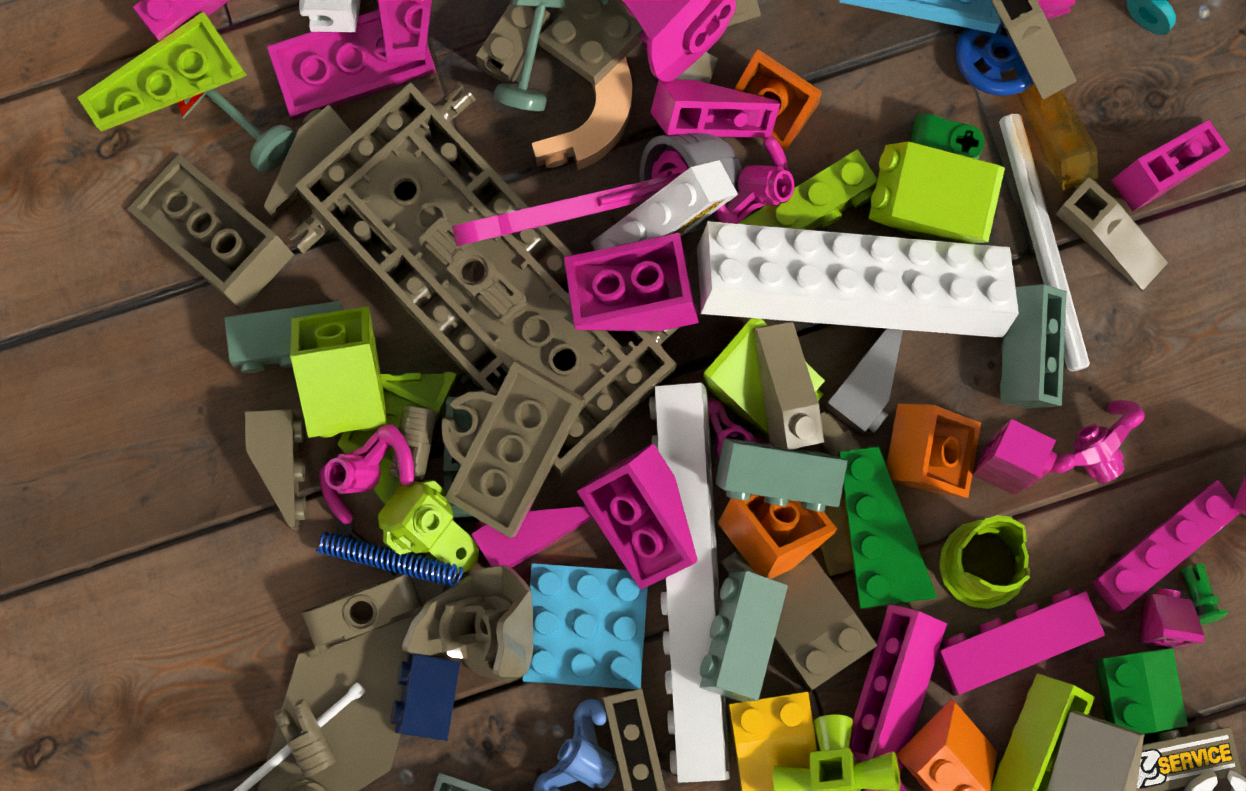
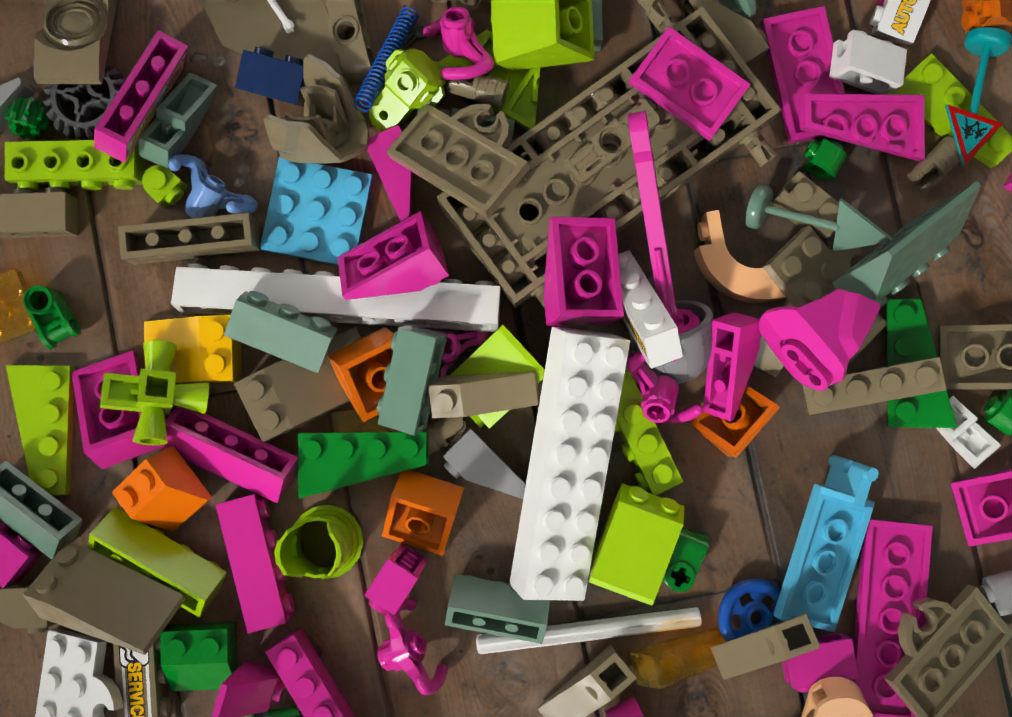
camera: 95 degrees right, 5 degrees up
(394, 189) = (689, 83): none -> dark pink plate
(451, 29) = (824, 159): none -> green plate

